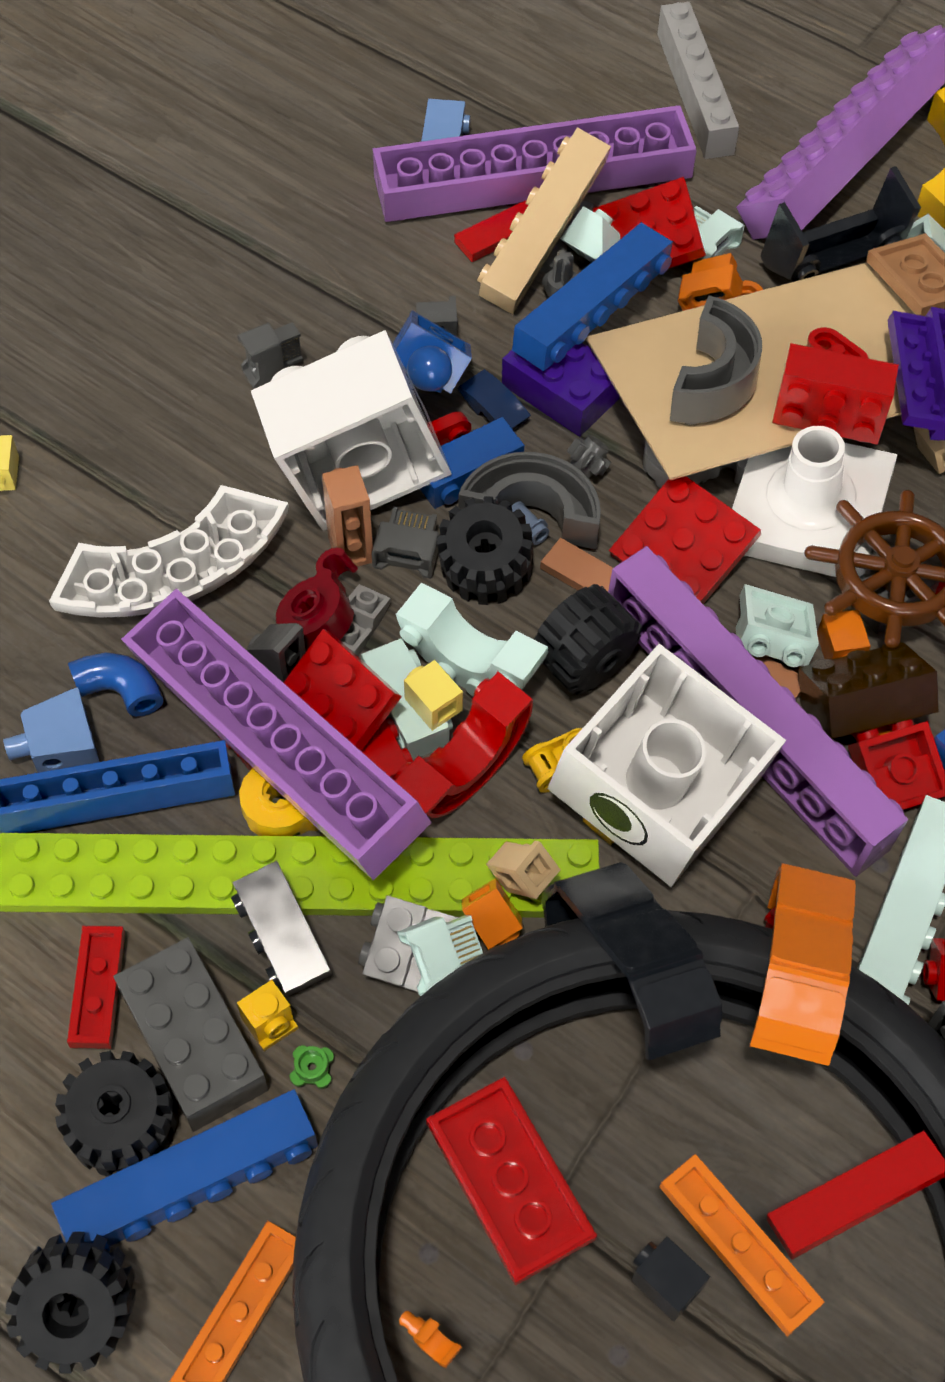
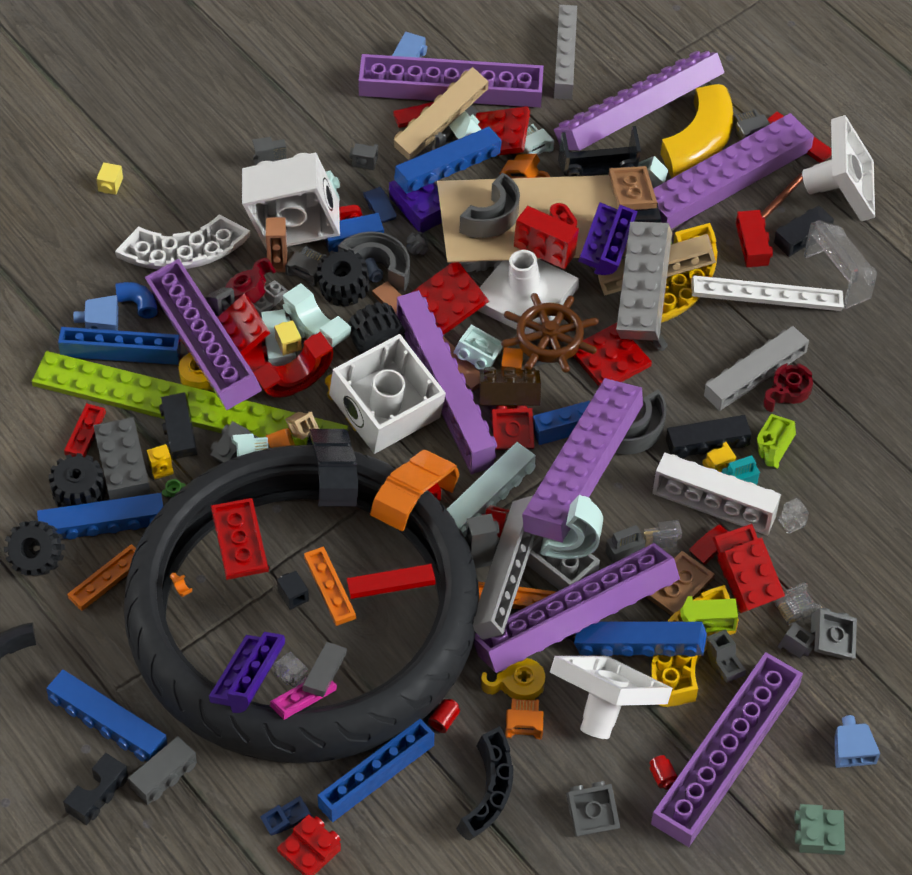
camera: 15 degrees right, 5 degrees down
(431, 354) = (350, 172): blue brick -> none

